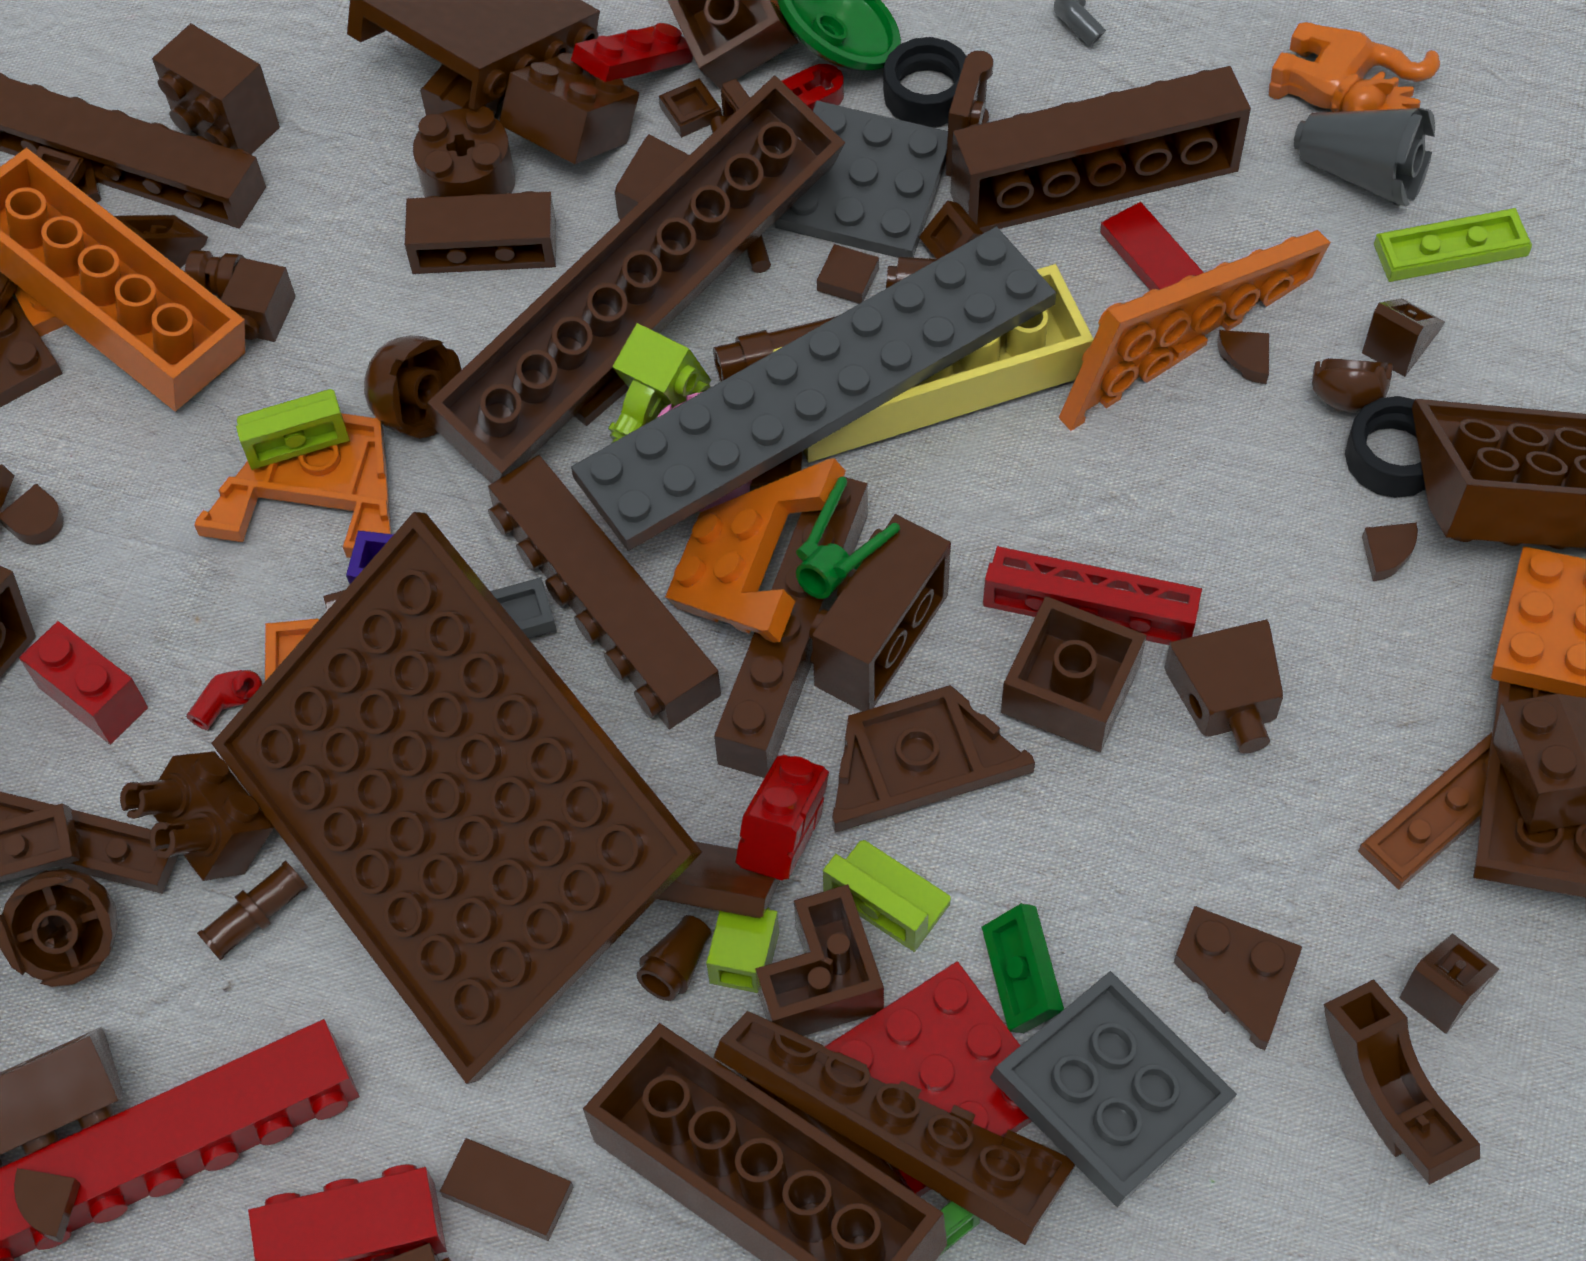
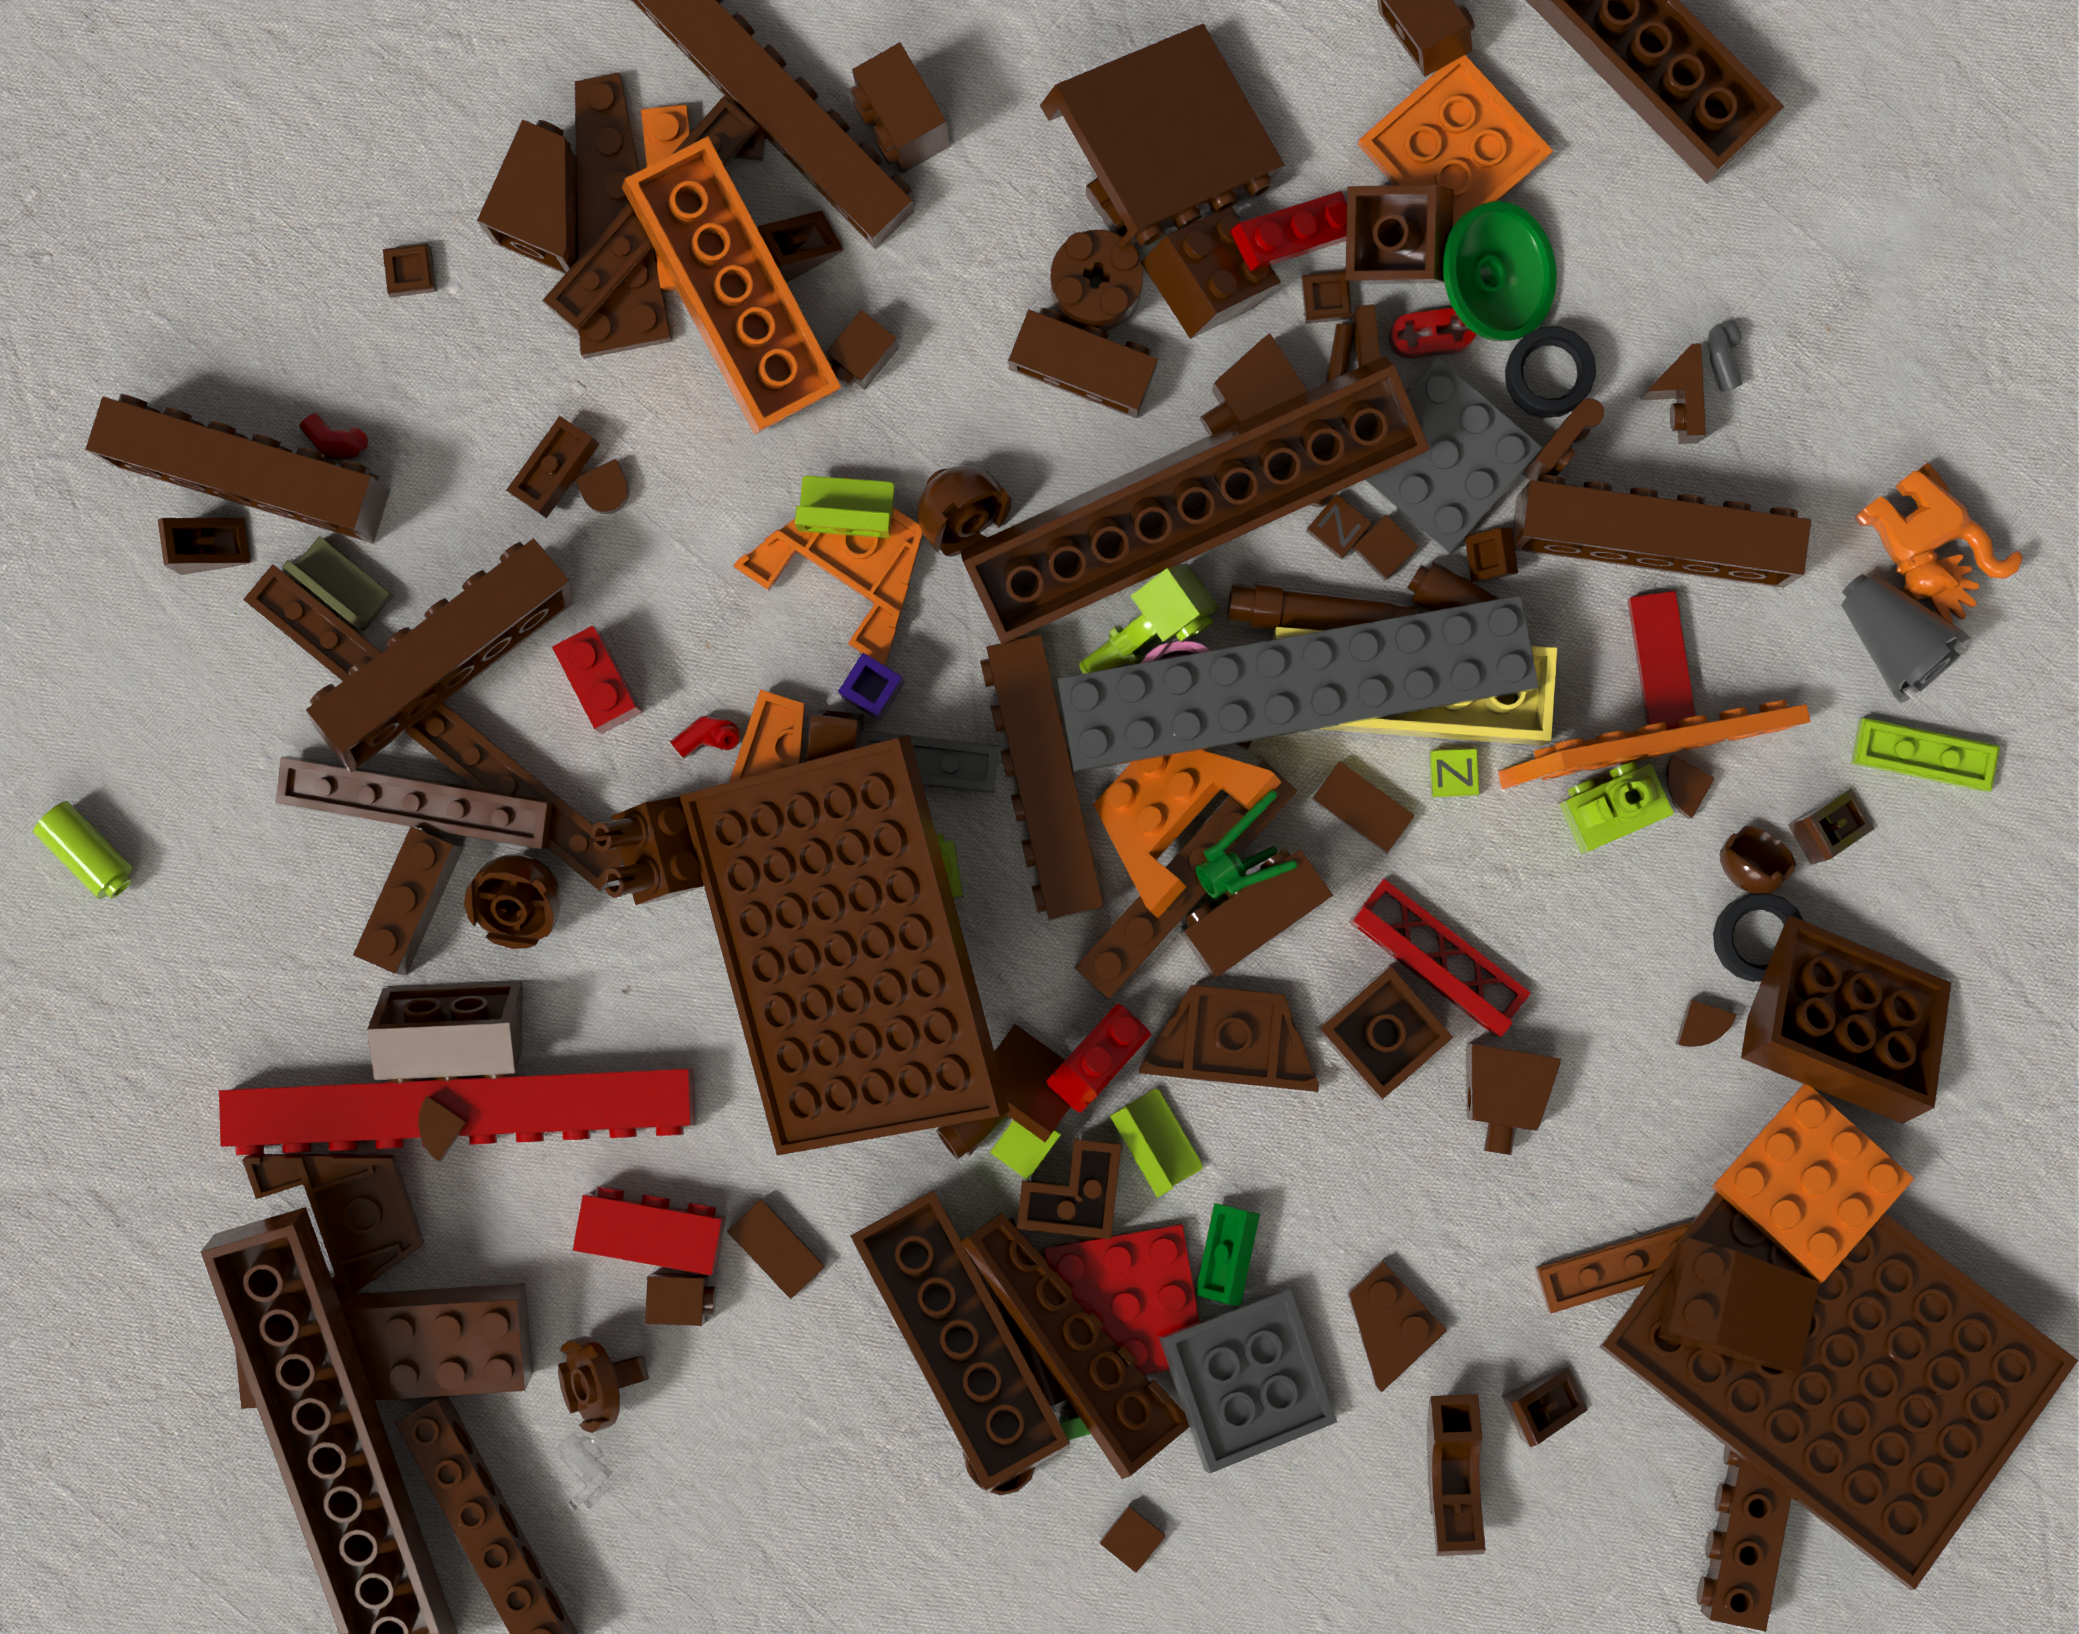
camera: 25 degrees right, 25 degrees up
(211, 271) = (833, 305): reddish brown wheel -> none
(252, 910) = (666, 940): reddish brown pin -> none
(793, 274) = (1338, 526): none -> reddish brown tile
(942, 494) = (1363, 807): none -> reddish brown tile
(1016, 431) = (1453, 773): none -> lime tile
(1057, 49) = (1685, 384): none -> reddish brown slope
(1194, 385) = (1616, 807): none -> lime brick

